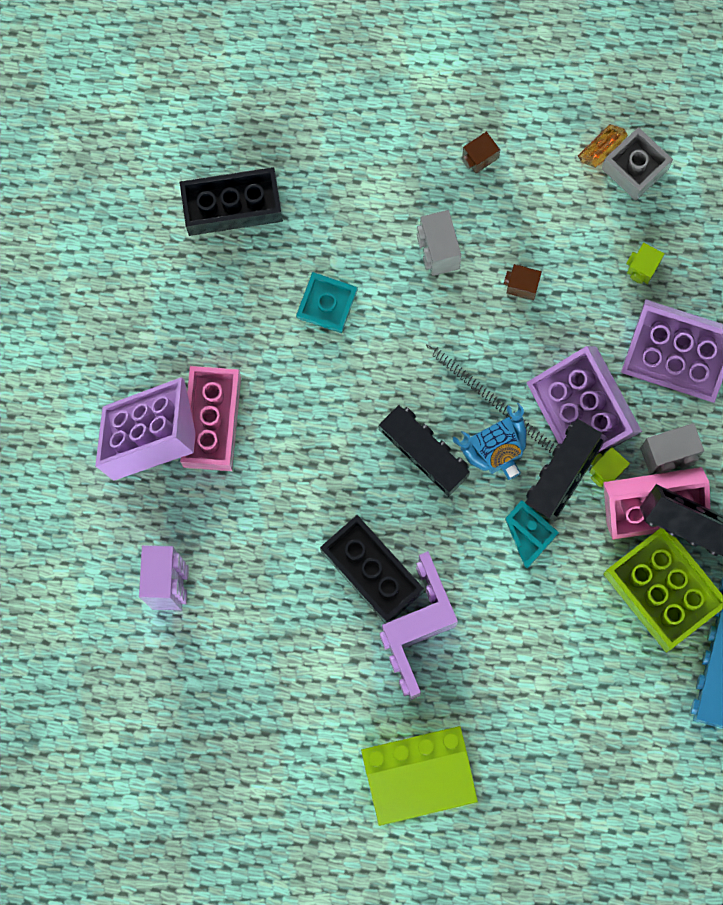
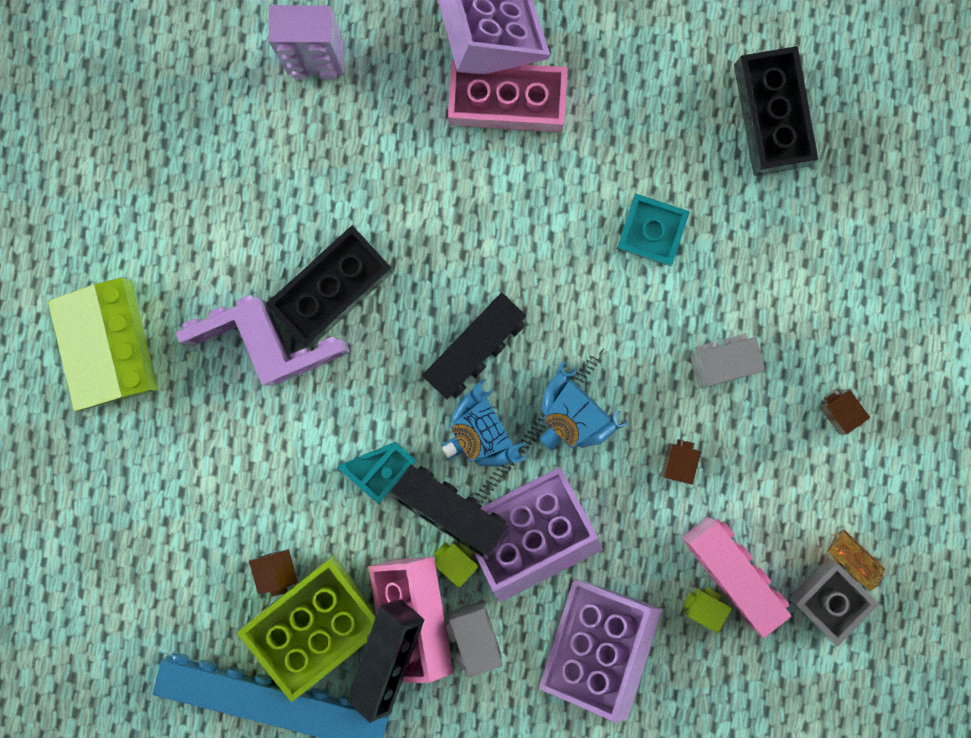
camera: 85 degrees right, 10 degrees up
(482, 367) = (574, 414): none -> dark azure torso
(617, 238) = (736, 577): none -> bright pink brick
(619, 622) = (273, 572): none -> reddish brown brick

